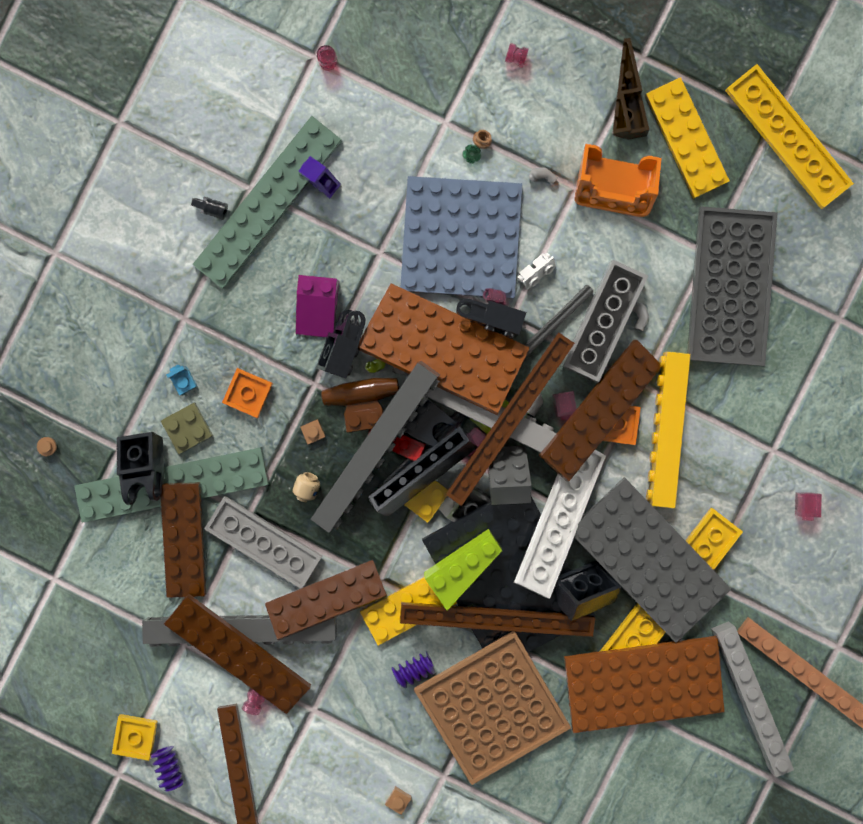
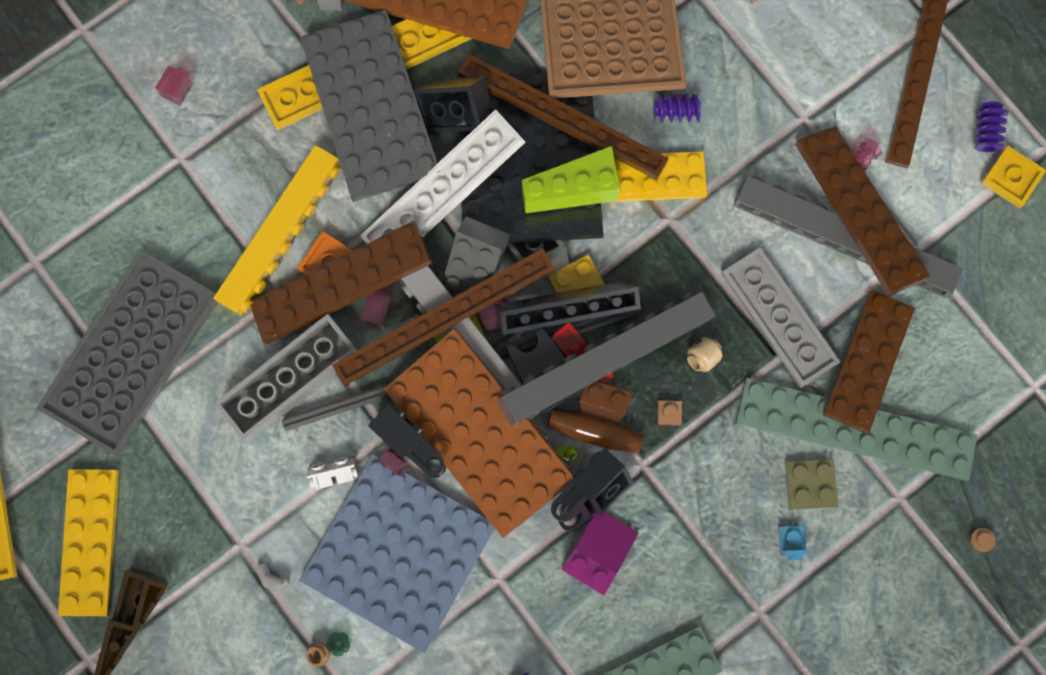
camera: 160 degrees left, 10 degrees down
(140, 465) = (883, 457): black brick -> none
(247, 392) = (724, 491): orange plate -> none
(325, 600) = (738, 222): reddish brown plate -> none
(617, 184) = (192, 527): orange windscreen -> none
(641, 311) = (242, 365): light grey arm -> none

